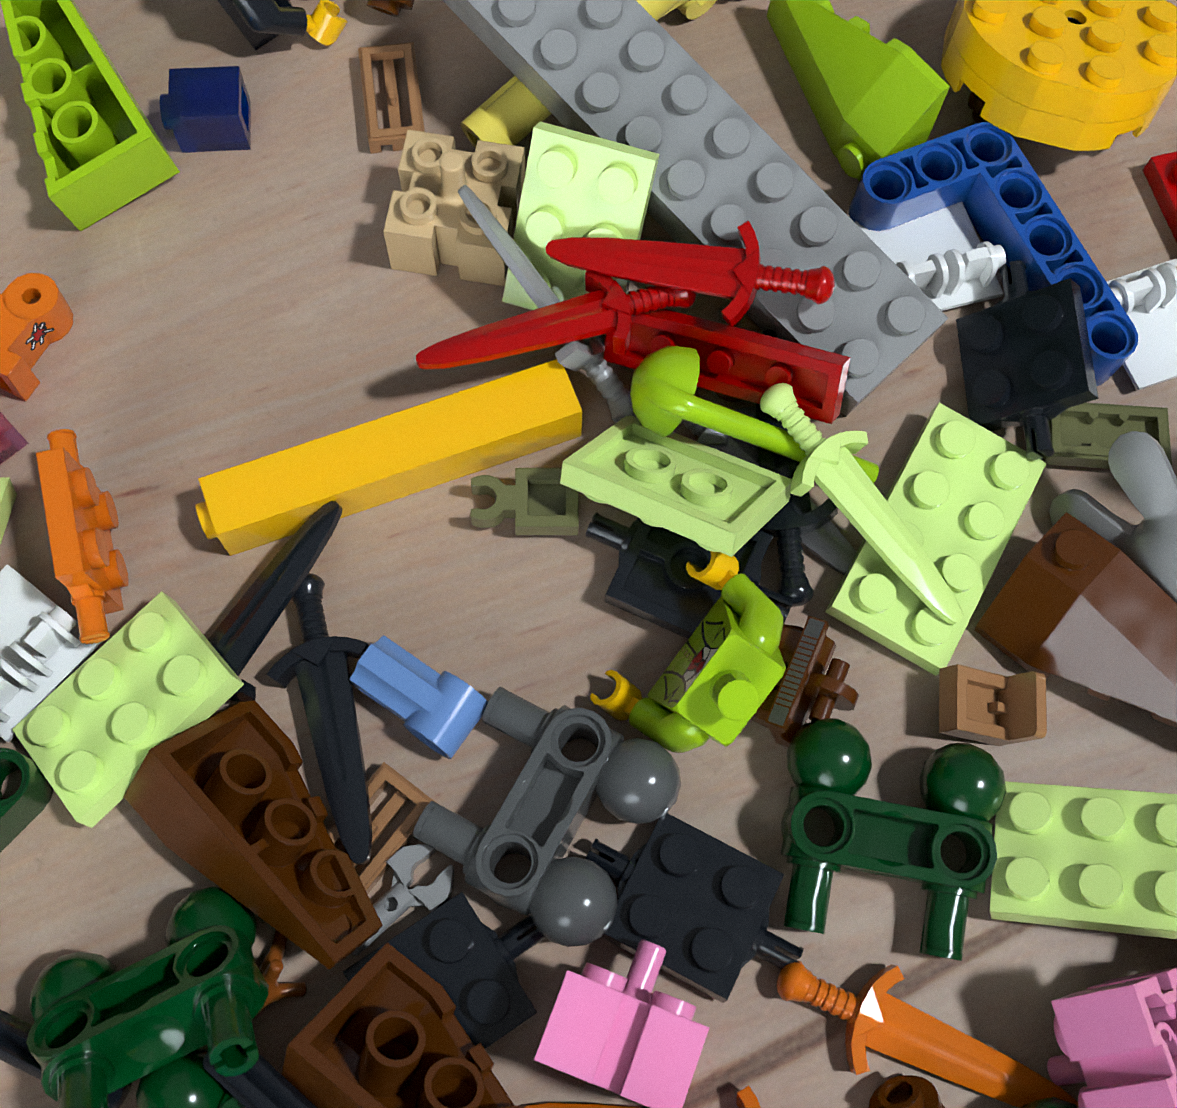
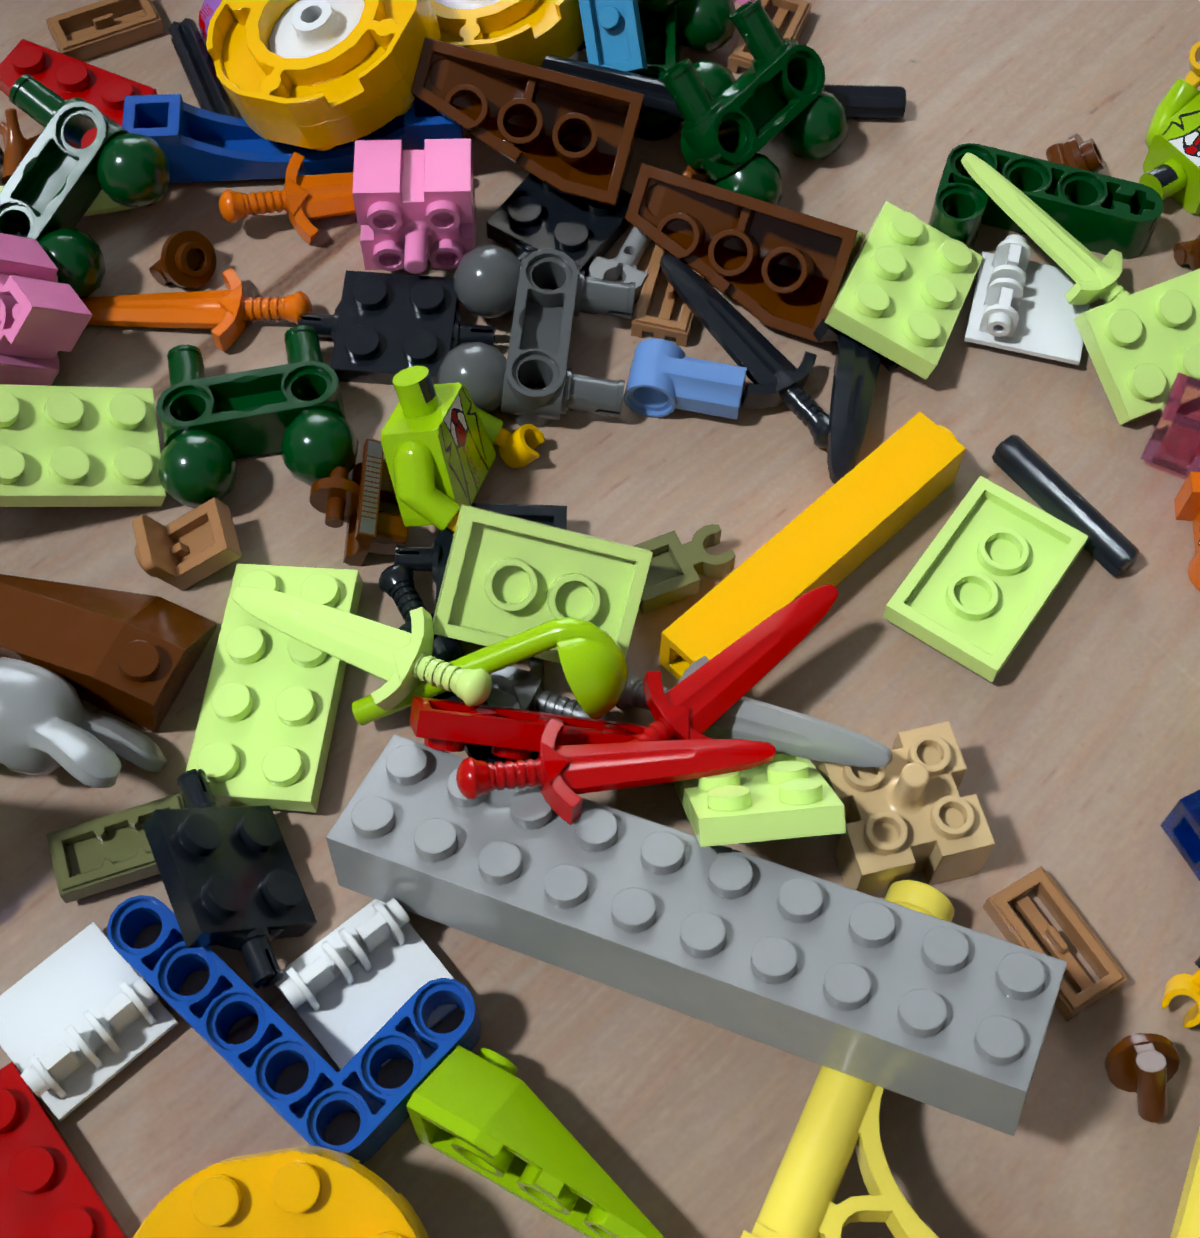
camera: 160 degrees right, 10 degrees down
(80, 535) = (1030, 372): orange plate -> none
(133, 426) = (1065, 503): none -> black axle
(253, 379) = (985, 578): none -> yellowish green plate

